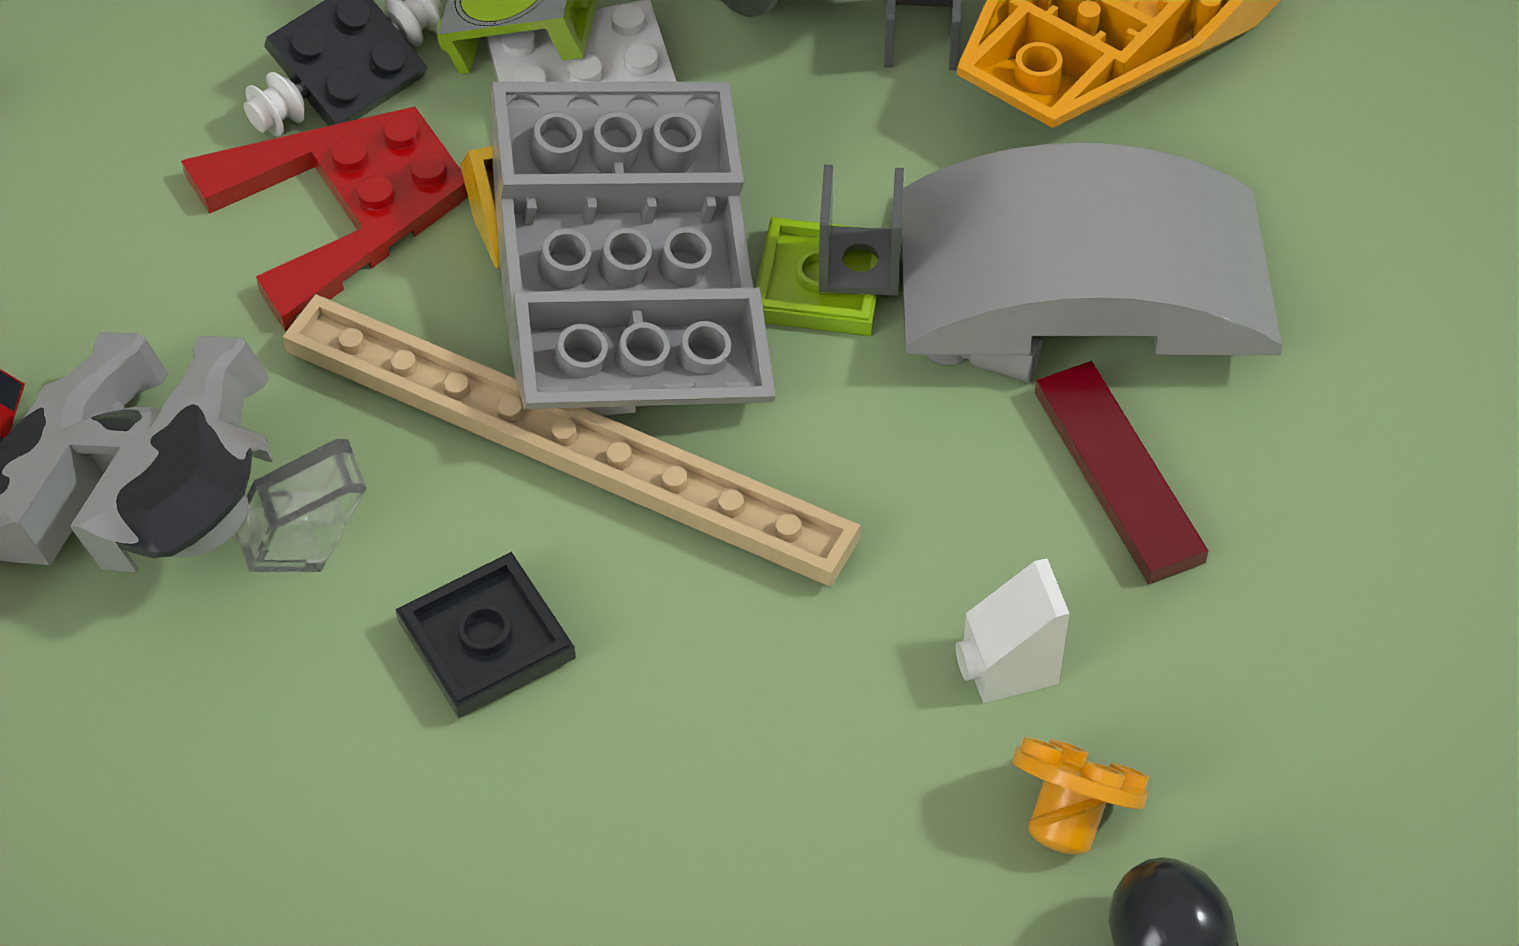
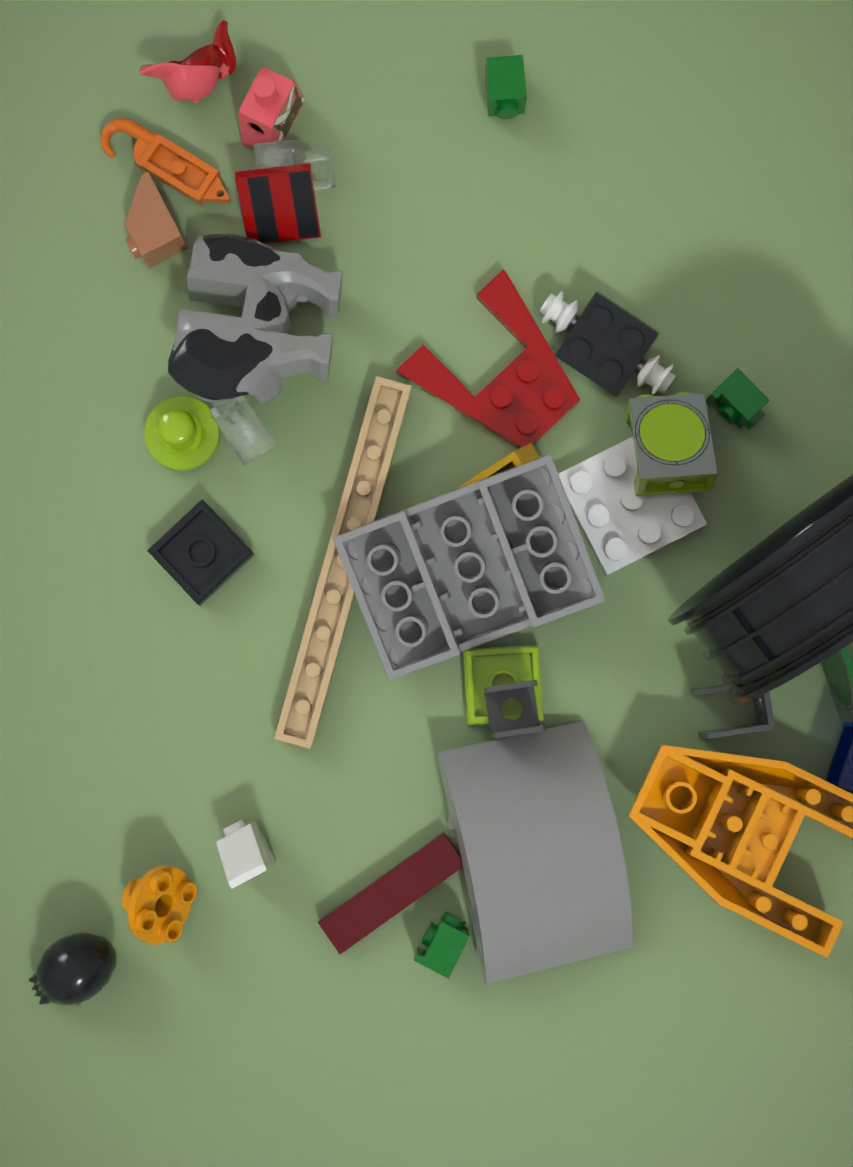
camera: 80 degrees right, 30 degrees up
(271, 631) = (181, 433): none -> lime plate
(1213, 404) = (443, 944): none -> green brick

